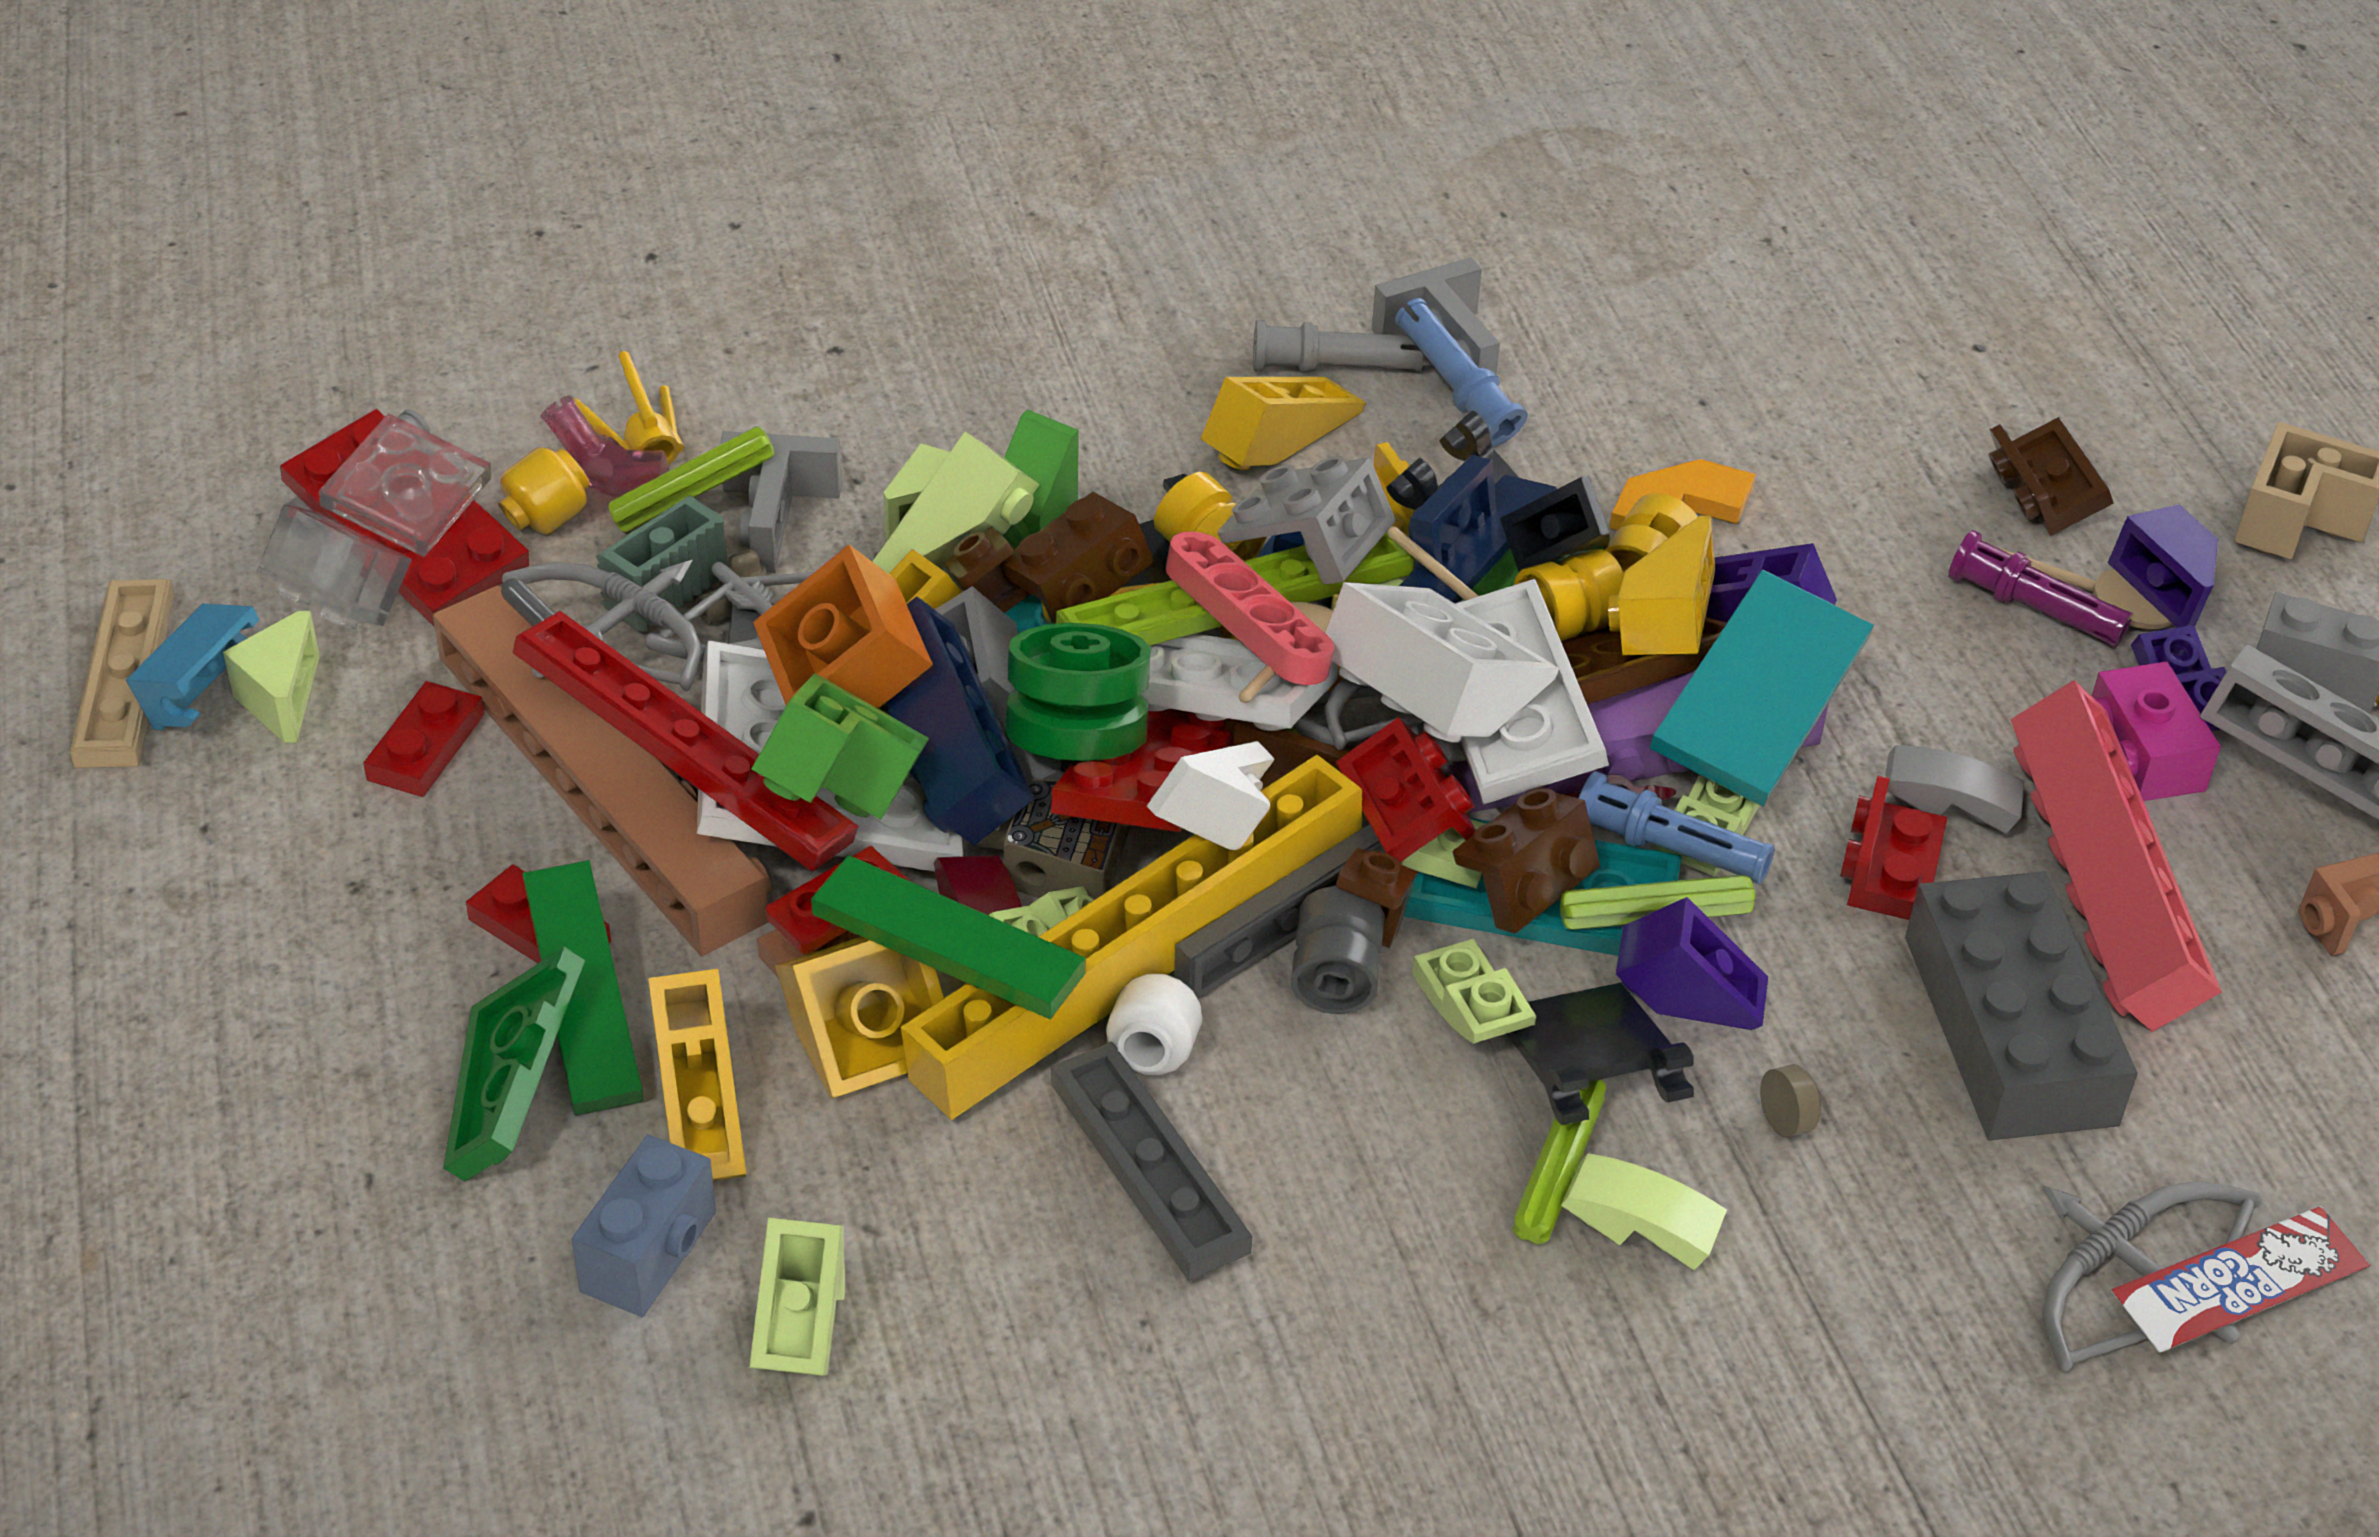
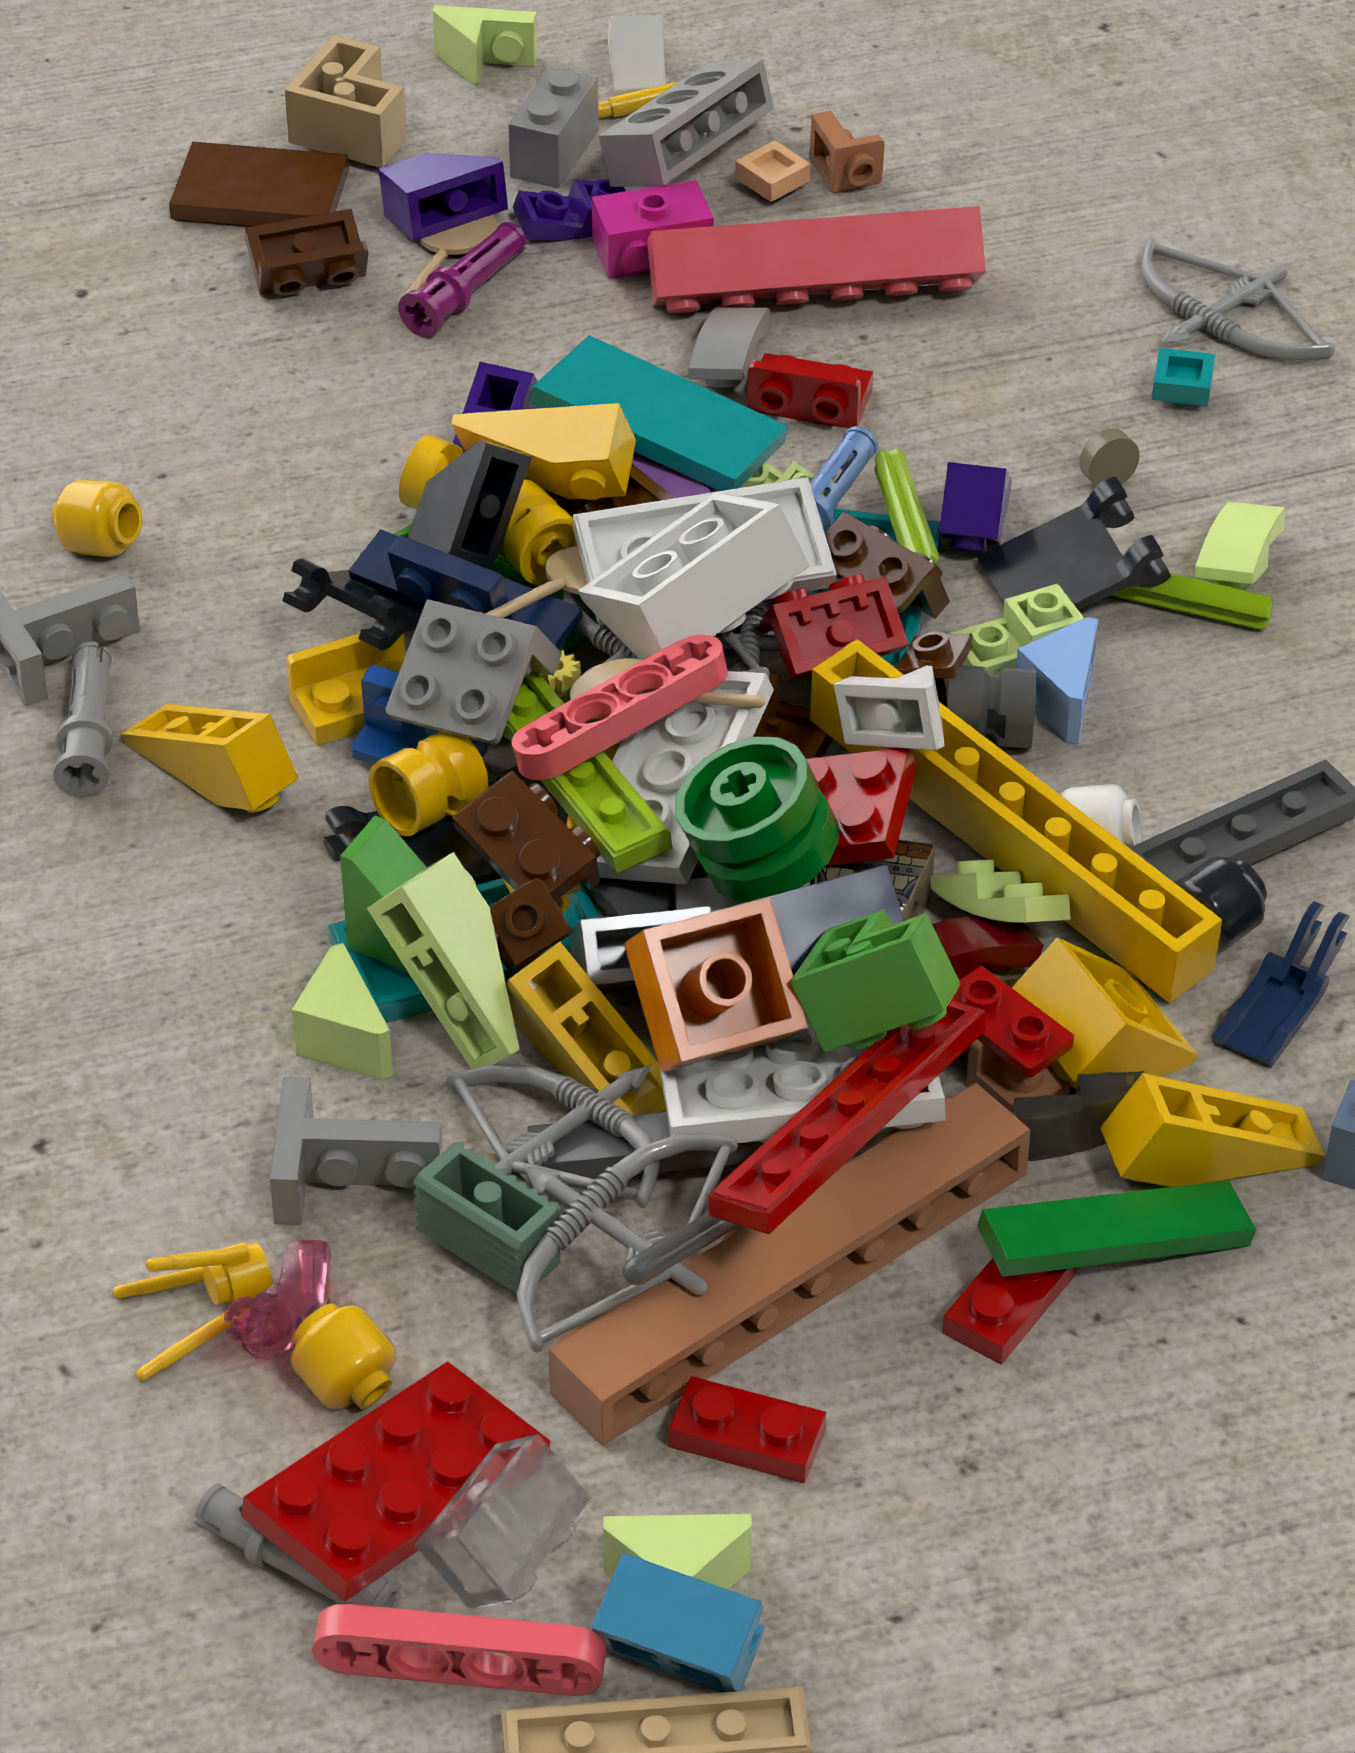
camera: 90 degrees left, 0 degrees up
(234, 543) = (537, 1656): none -> coral beam
(405, 484) = (390, 1445): clear plate -> none
(504, 1060) = (1229, 1271): green wing -> none
(691, 478) = (340, 1211): lime axle -> none
(743, 977) = (1072, 1122): none -> clear smoke slope
(908, 1174) = (1282, 993): none -> dark blue arm
(949, 936) = (1083, 908): green tile -> none
(1023, 1112) = (1230, 892): none -> black head
(1394, 1023) = (1062, 675): none -> light blue slope
(1472, 386) = (175, 607): medium blue pin -> none
(1605, 343) = (97, 518): none -> yellow head
(1698, 483) = (326, 507): light orange tile -> none
(1965, 1191) = (1183, 377): none -> teal plate
(2019, 1006) = (988, 326): dark grey brick -> none
(2175, 453) = (256, 184): none -> reddish brown tile
(2239, 1279) = (1234, 257): sticker -> none
(2300, 841) = (772, 171): none -> light nougat plate

